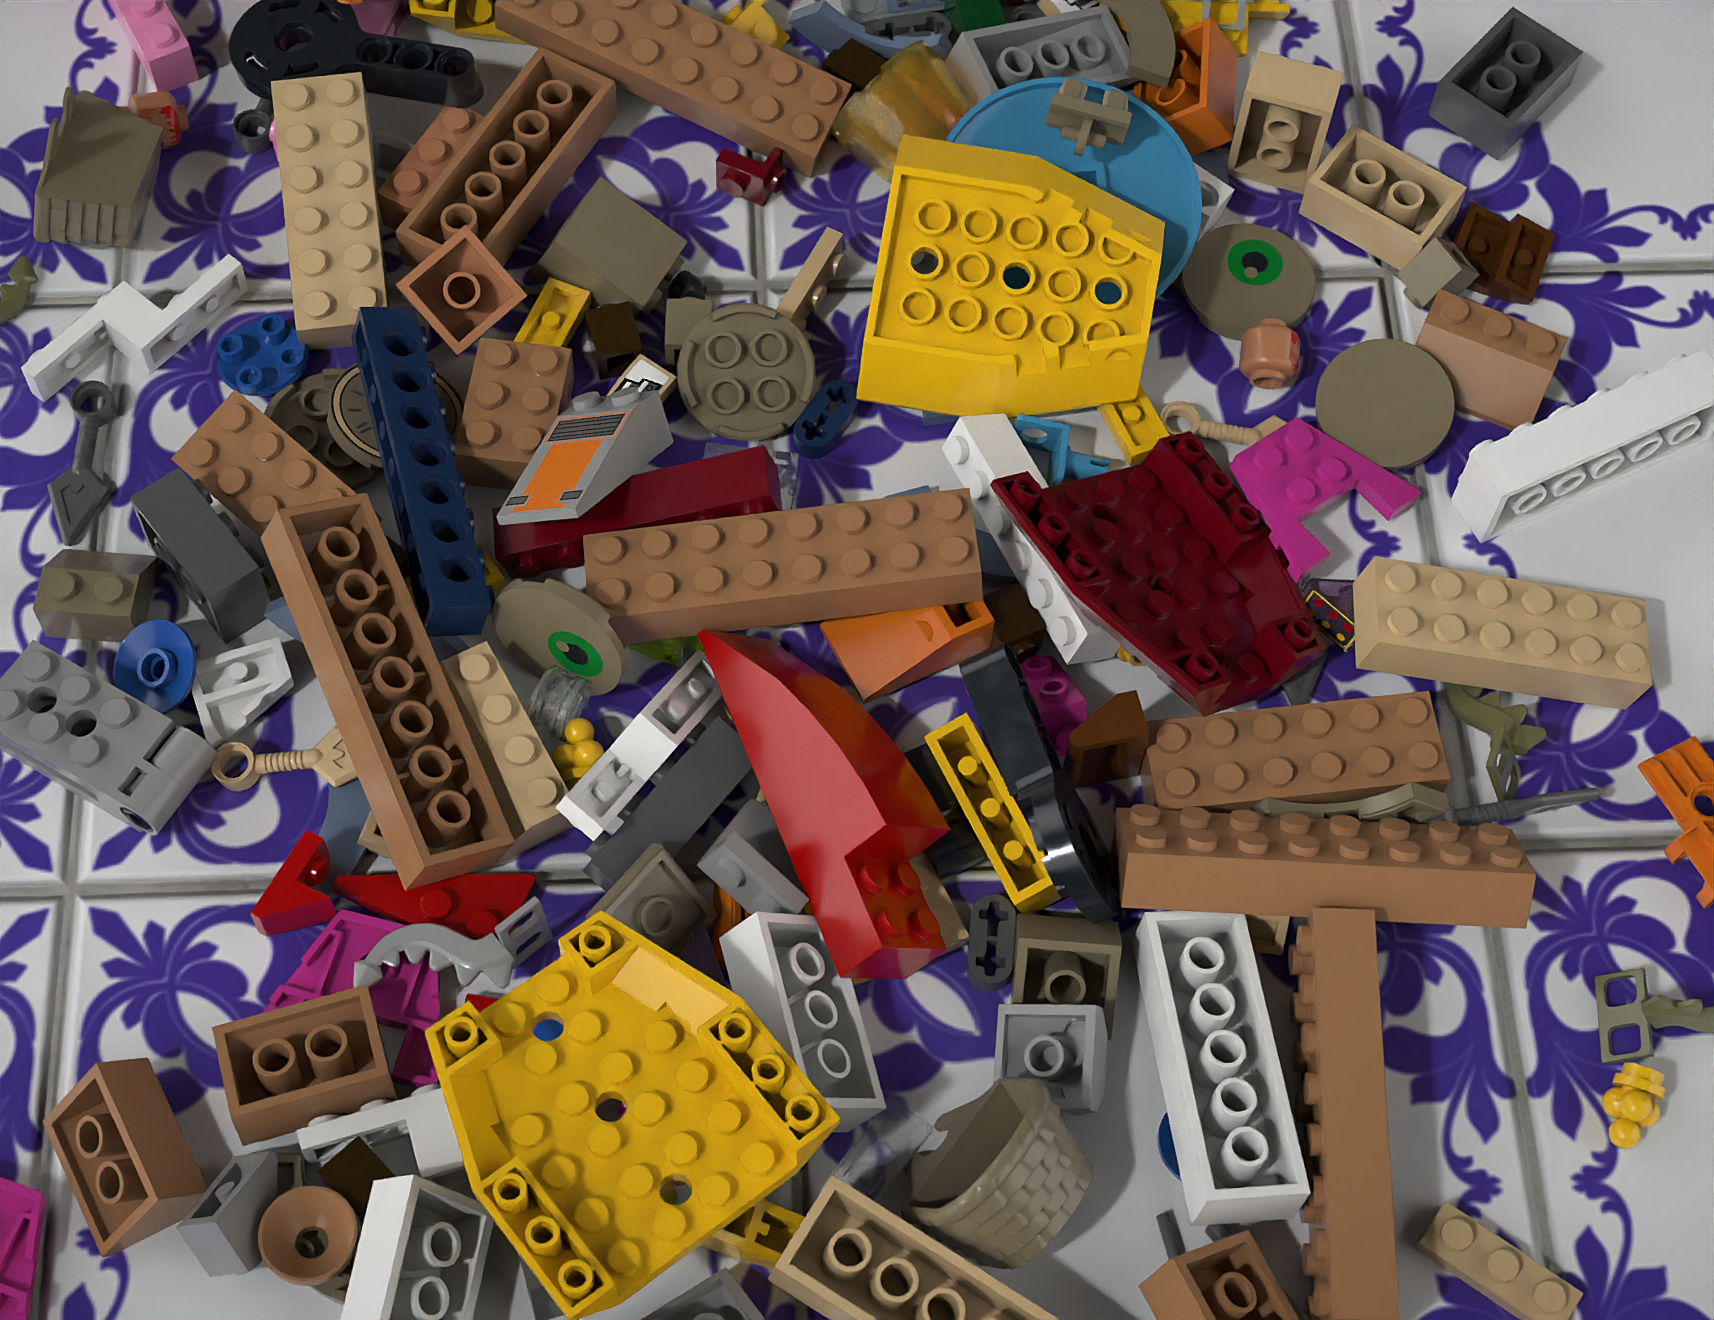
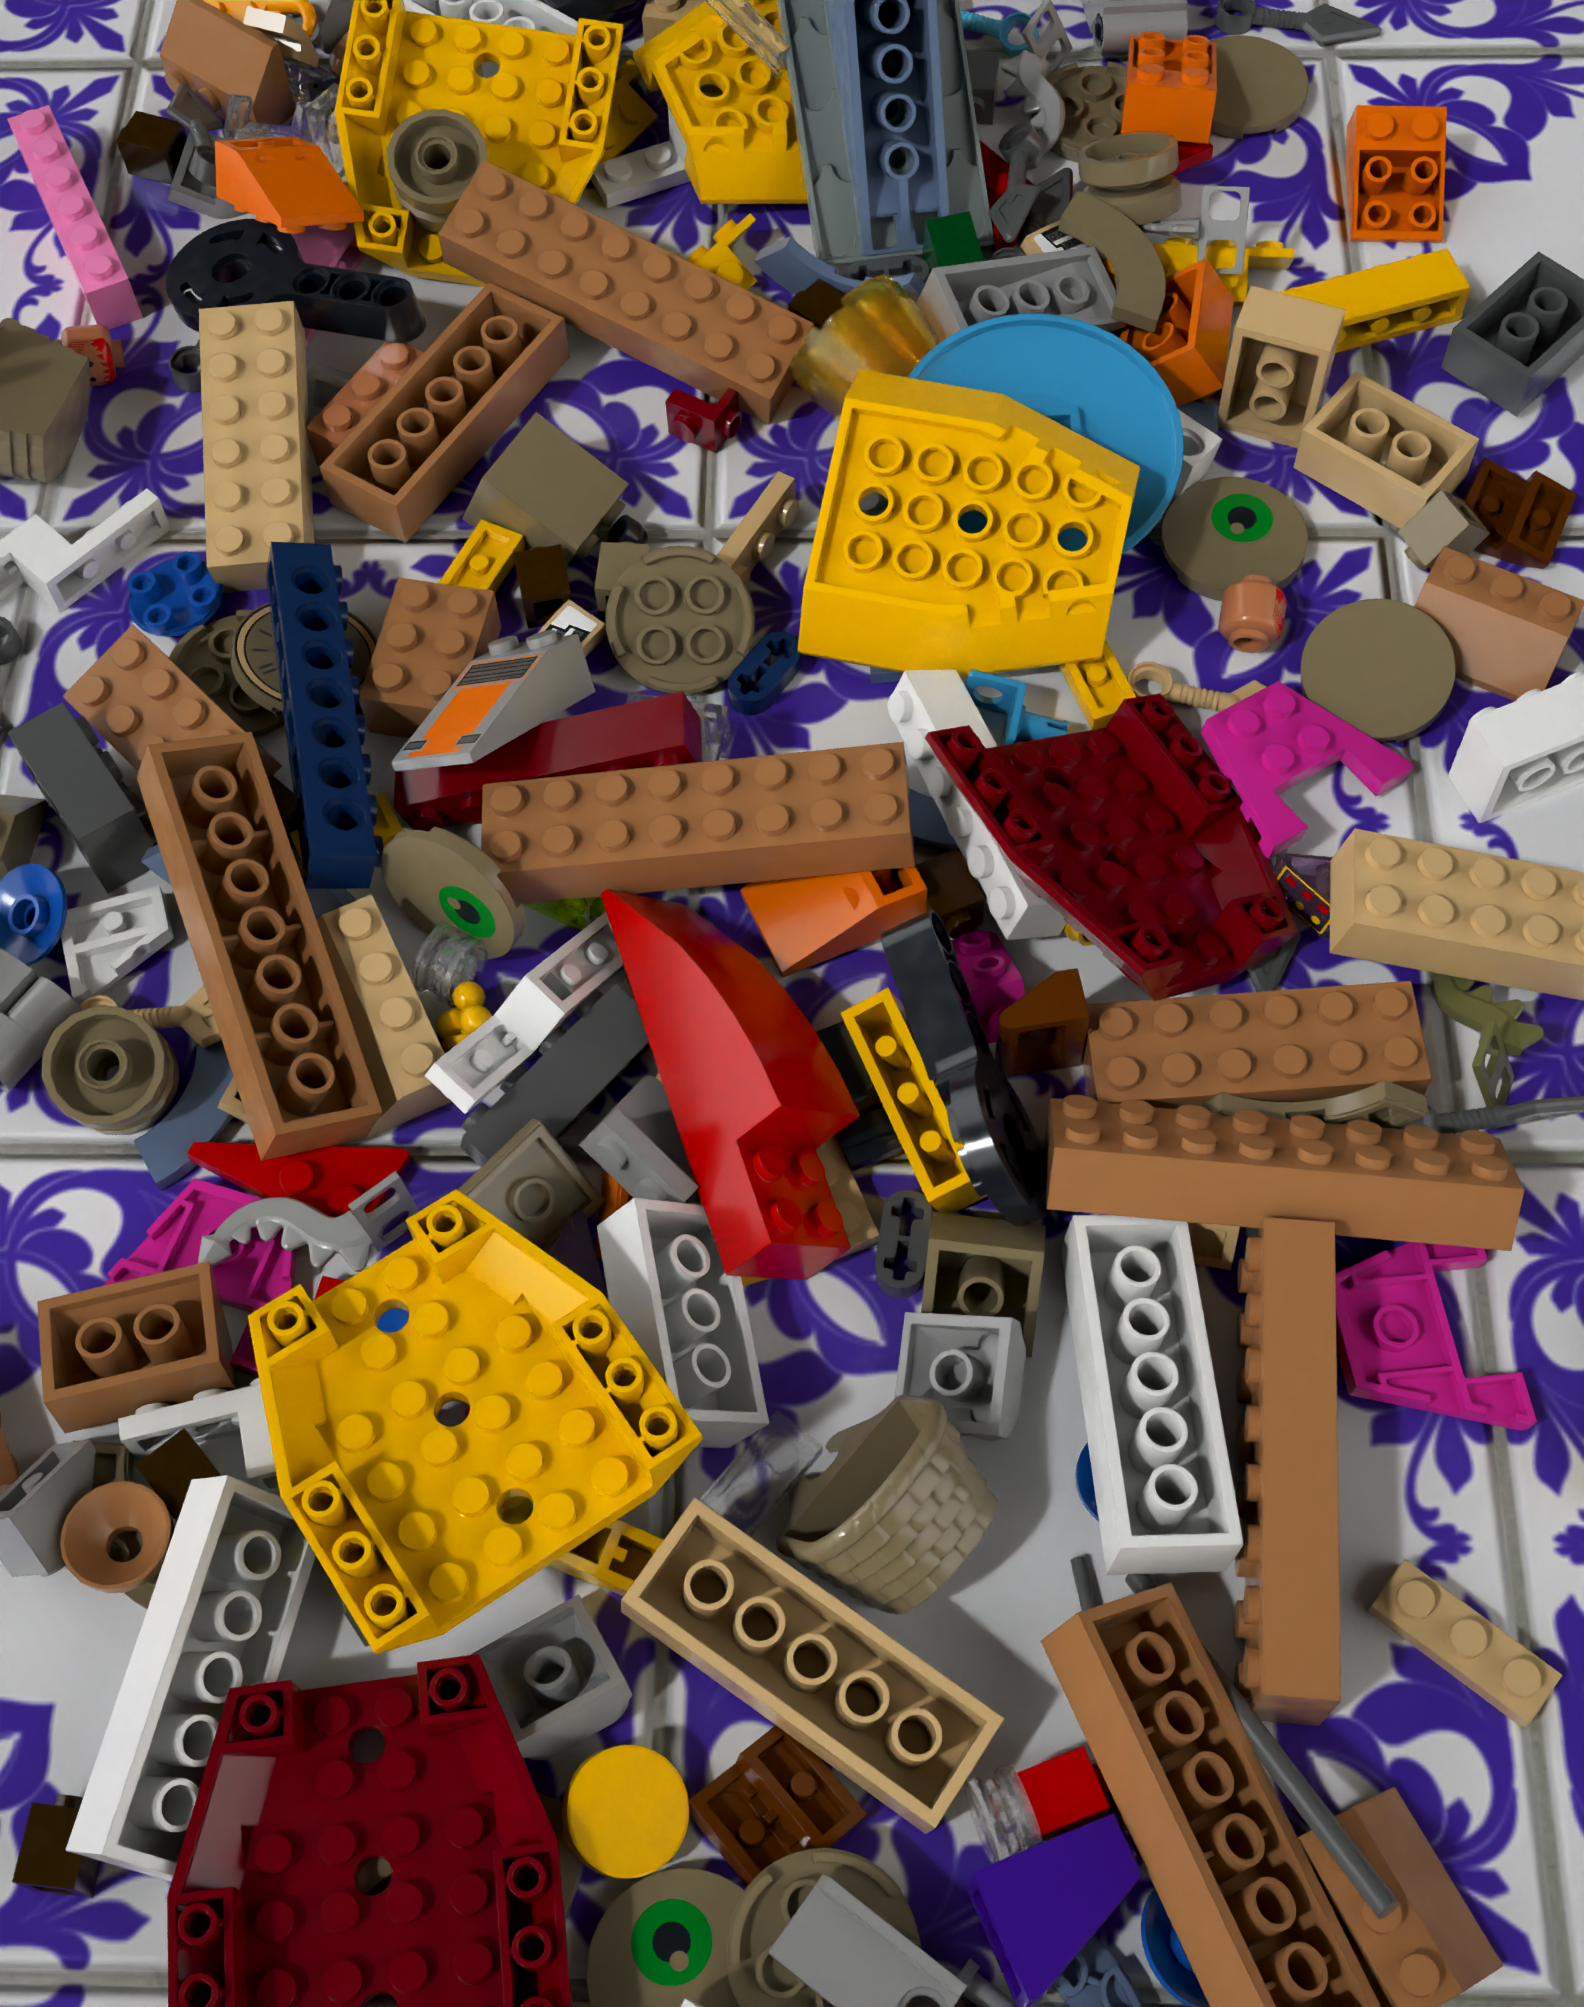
camera: 10 degrees right, 0 degrees up
(237, 788) = (84, 1051): none -> dark tan wheel
(289, 899) = (138, 1162): red slope -> none
(461, 290) = (381, 529): nougat slope -> none
(1088, 121) = (1060, 357): dark tan hips -> none
(1377, 49) = (1393, 298): none -> yellow brick
(1434, 1015) = (1400, 1343): none -> dark pink wing

